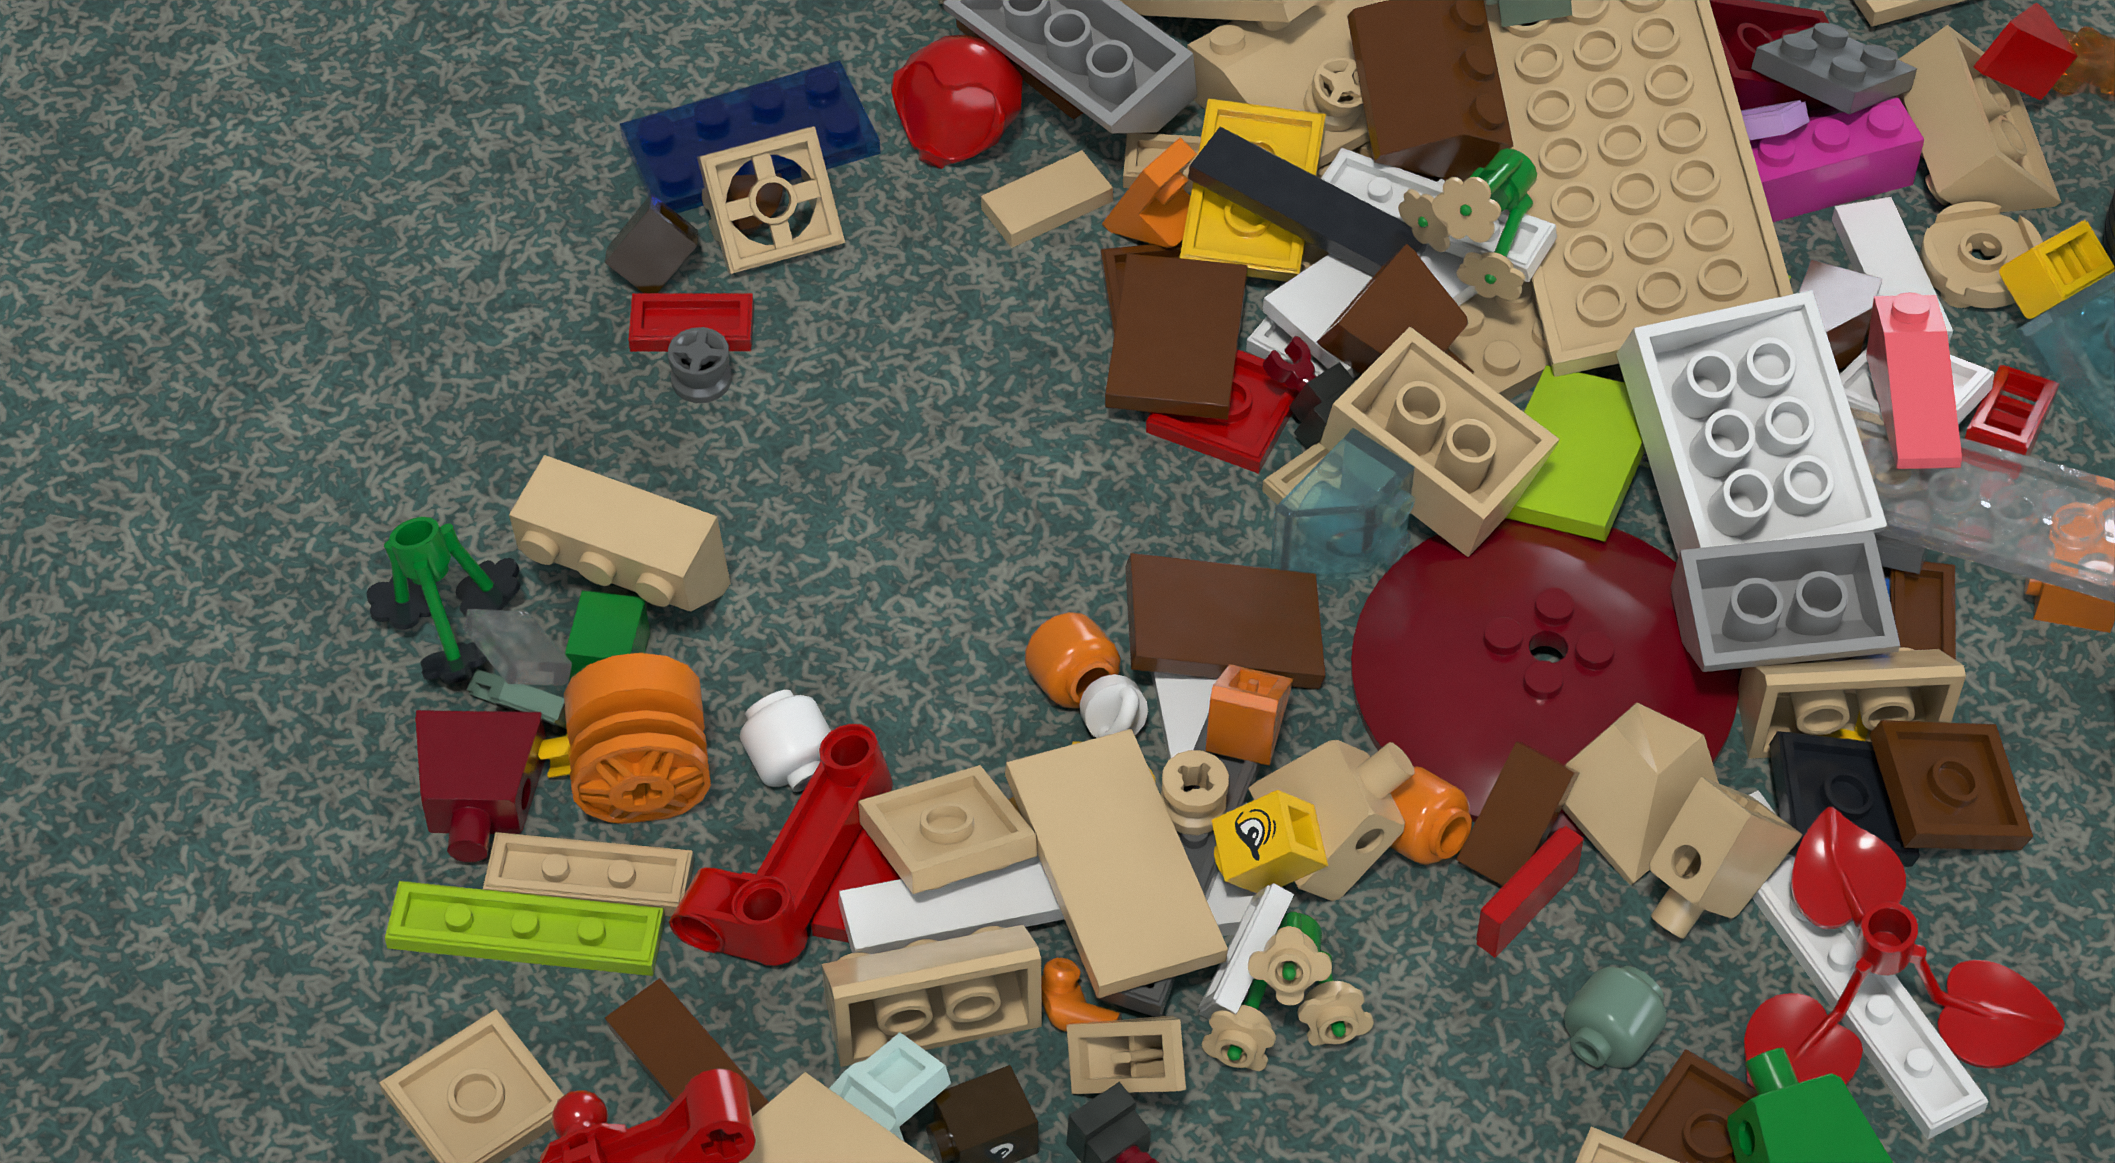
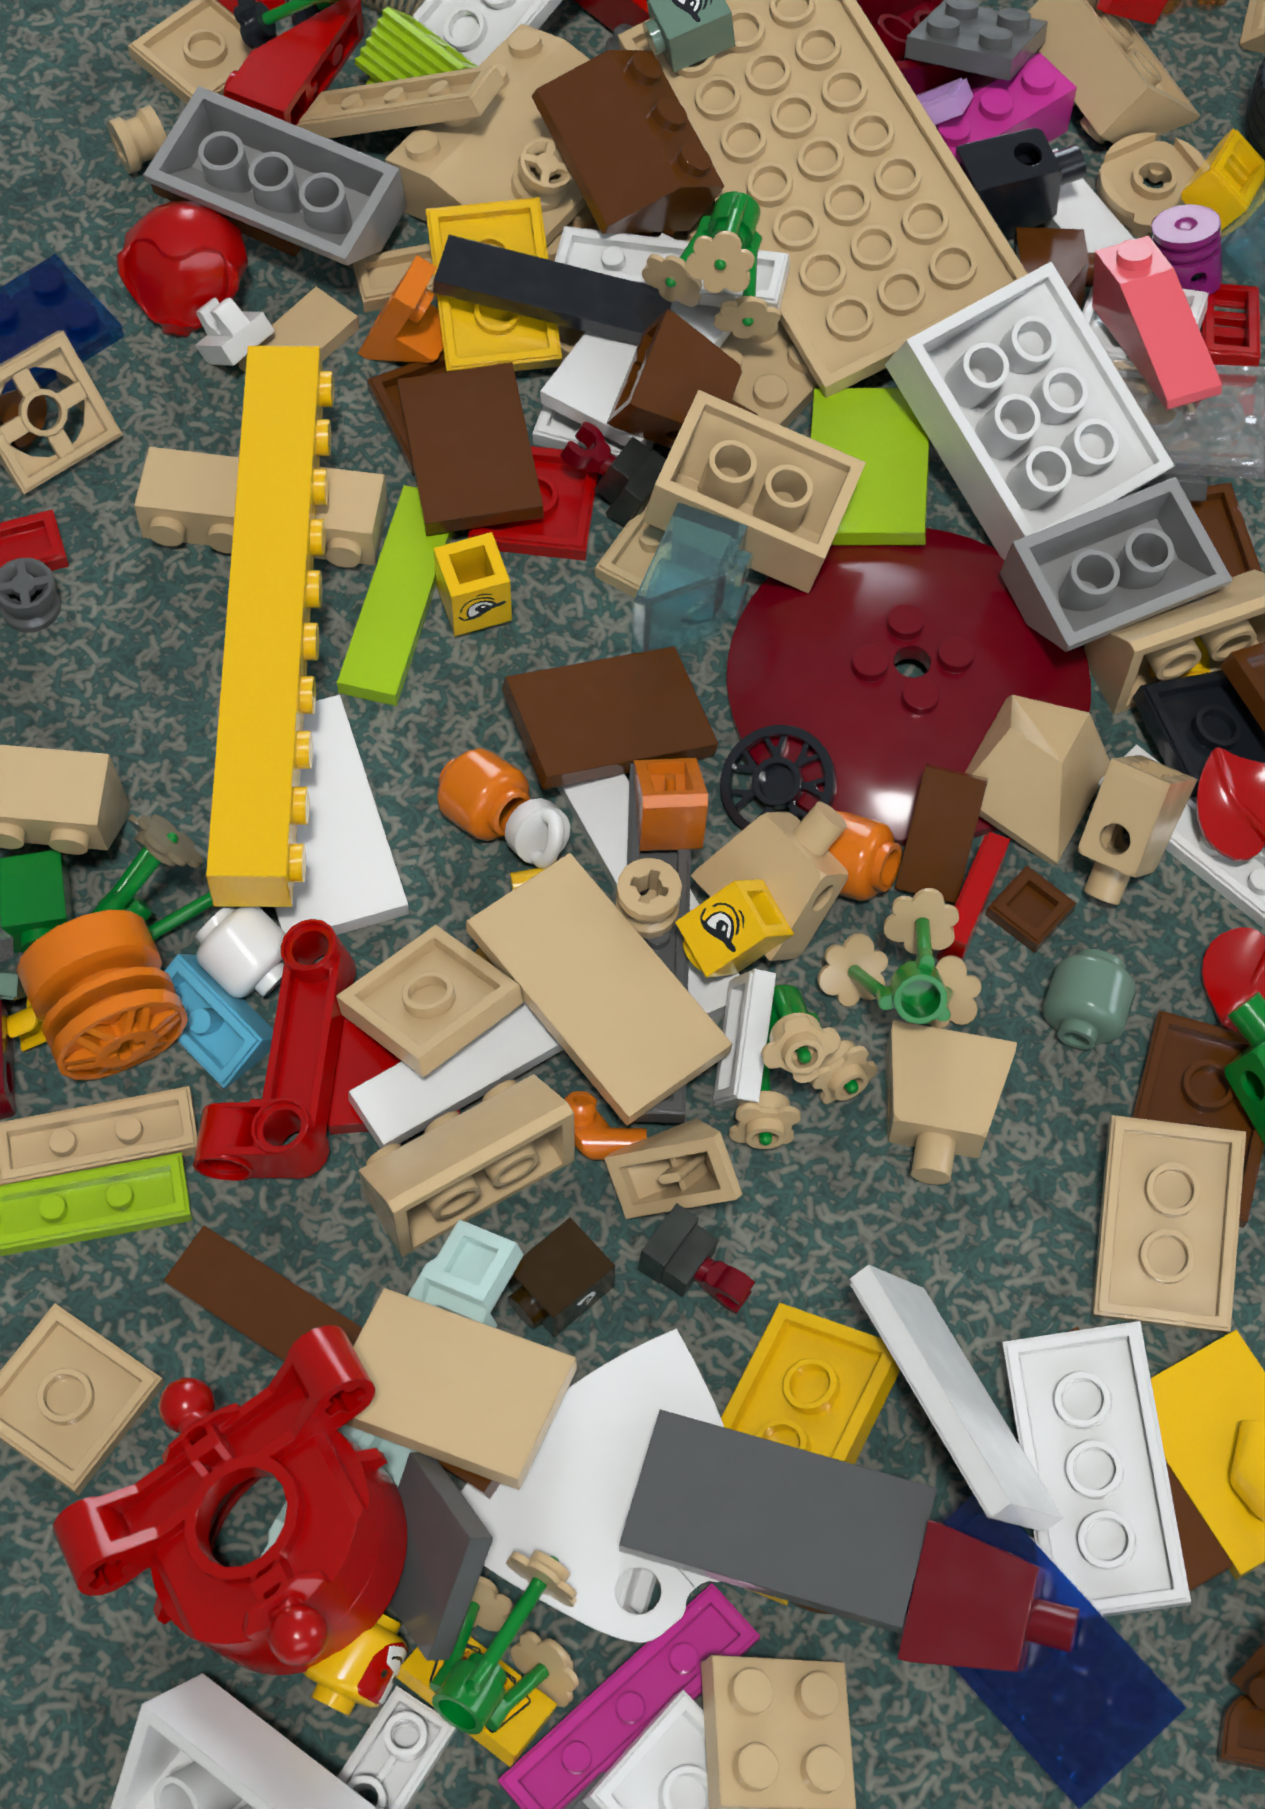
camera: 20 degrees left, 10 degrees up
(739, 807) = (220, 1030): none -> medium azure slope
(746, 619) = (159, 845): none -> plant
(902, 640) = (348, 857): none -> white tile
(913, 447) = (270, 631): none -> yellow brick
(954, 340) = (194, 498): none -> tan brick
(981, 171) = (230, 331): none -> white tile
(1051, 467) = (393, 607): none -> lime tile
(1132, 461) = (473, 584): none -> yellow brick
(1372, 722) = (776, 779): none -> black wheel
(1427, 943) = (917, 988): none -> tan plant
(1431, 1063) = (942, 1094): none -> tan torso
(1589, 918) = (1030, 909): none -> reddish brown tile
(1825, 213) = (1019, 176): none -> black torso
(1988, 317) = (1192, 244): none -> magenta piece

